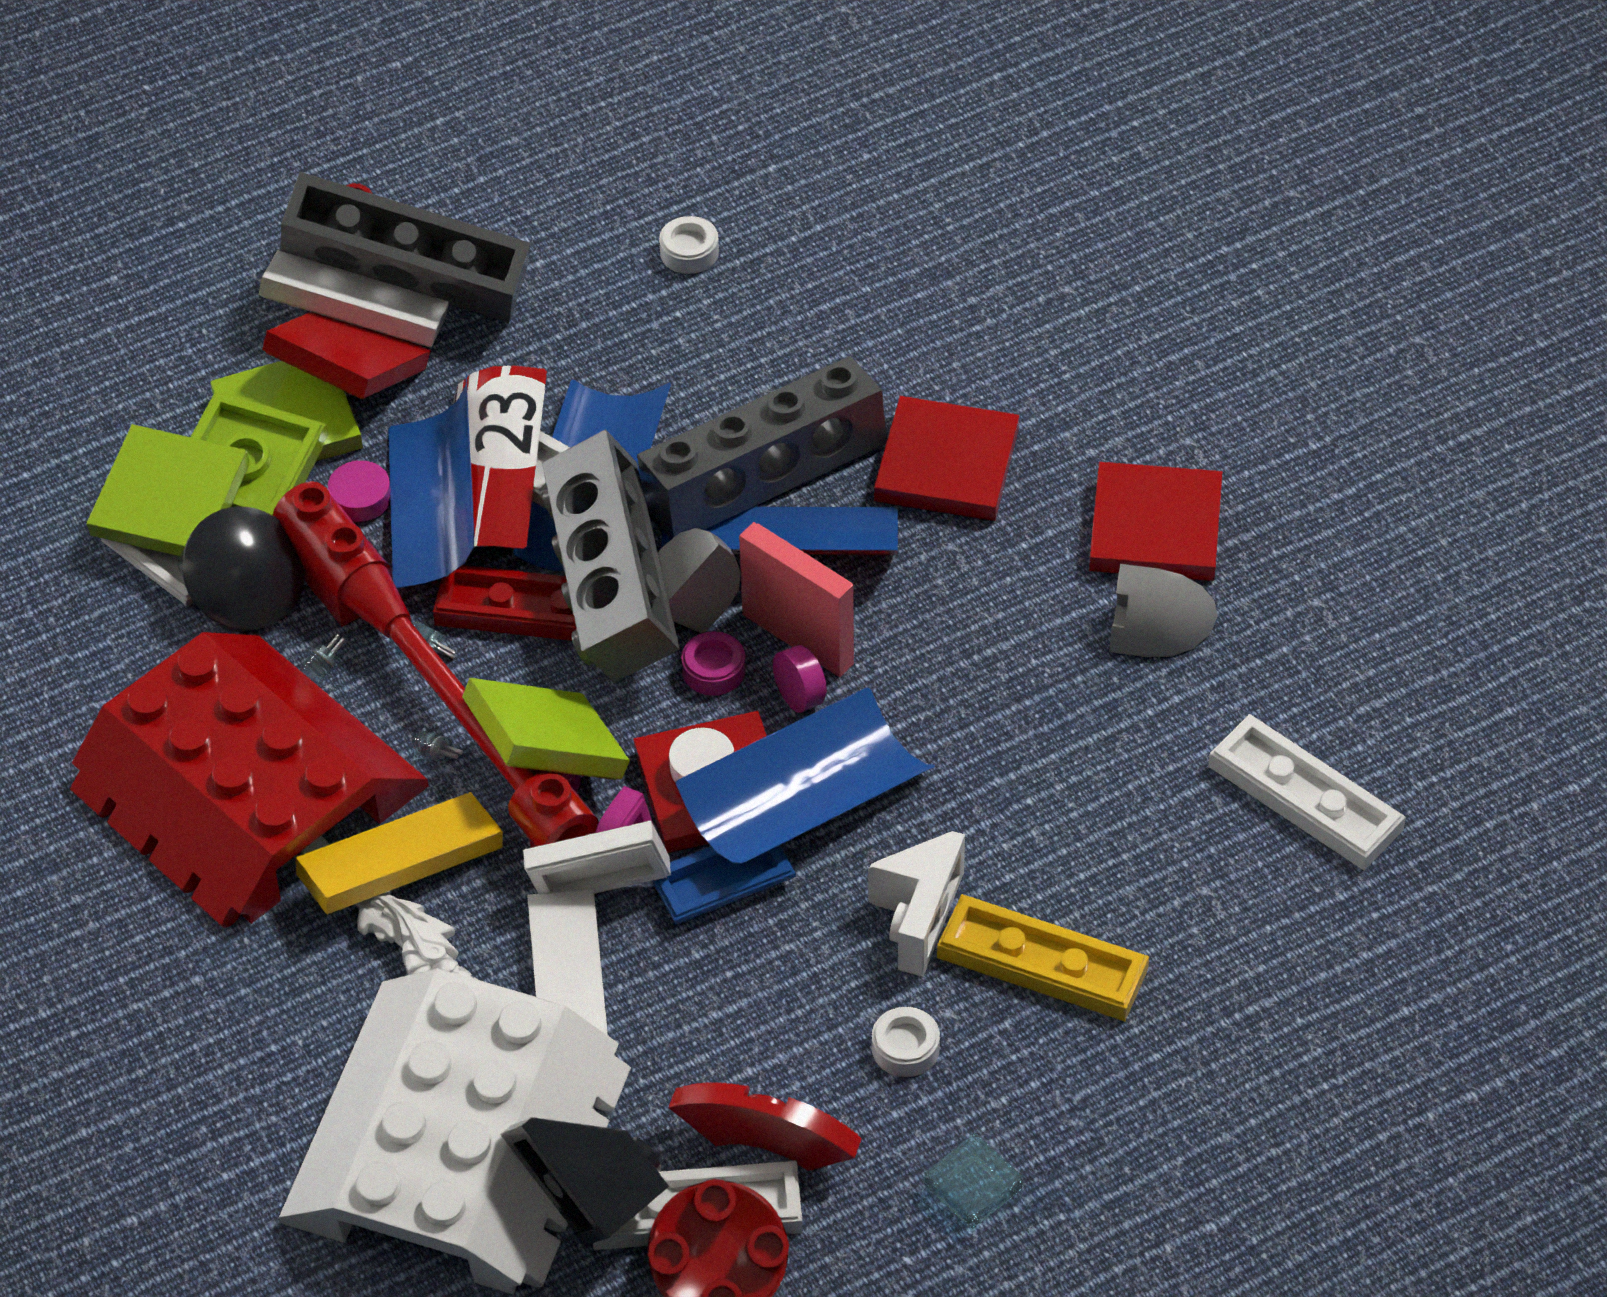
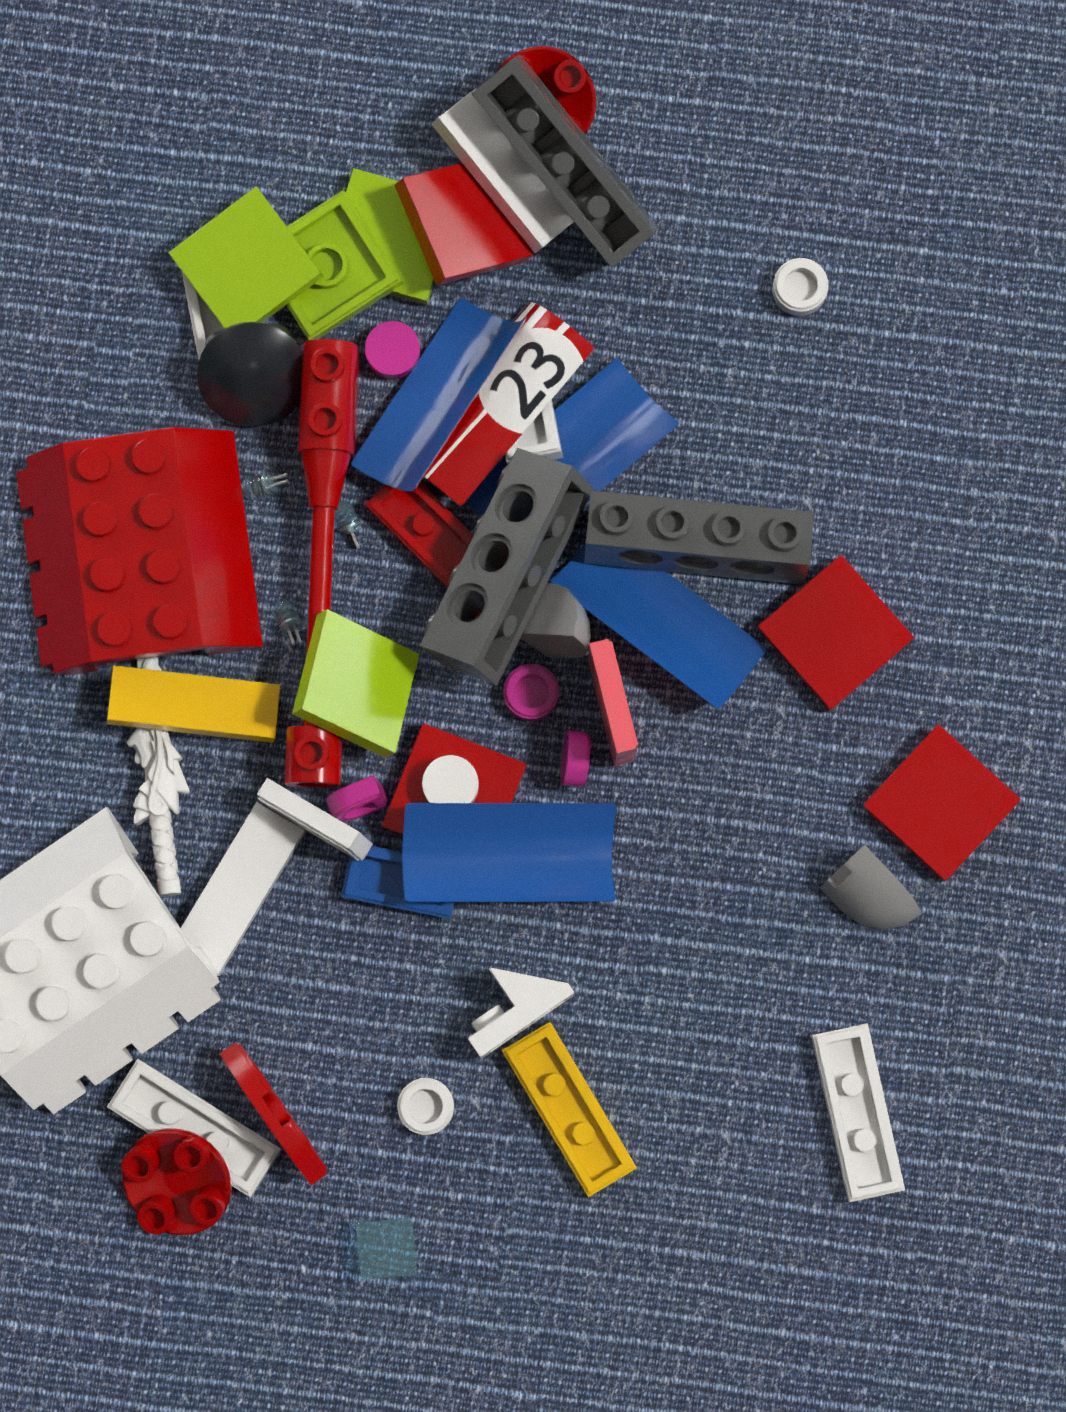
camera: 35 degrees right, 30 degrees up
(588, 1172) = (119, 1080): black slope -> none

